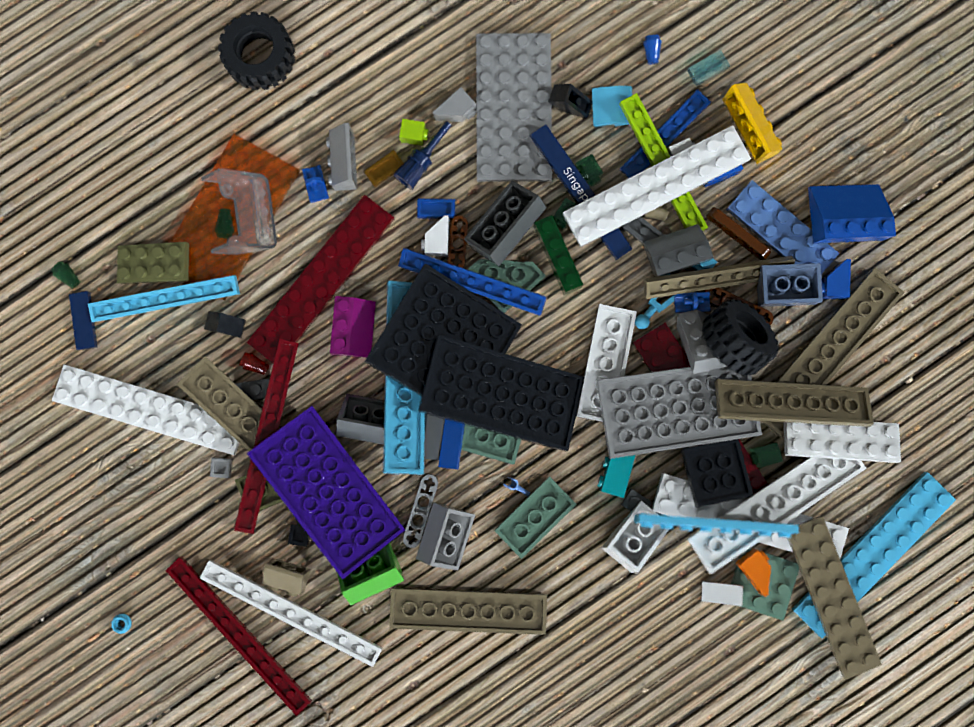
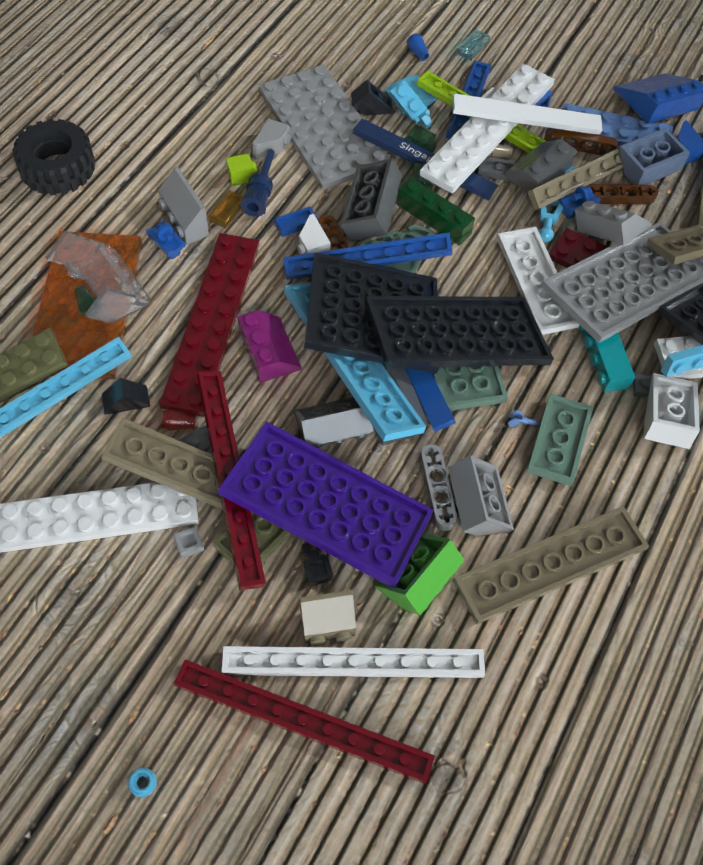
camera: 35 degrees left, 25 degrees down
(602, 123) = (411, 104): none -> medium azure hinge
(694, 194) = (526, 114): none -> white tile
(740, 337) = (645, 196): black tyre -> none
(752, 122) = (518, 52): yellow slope -> none

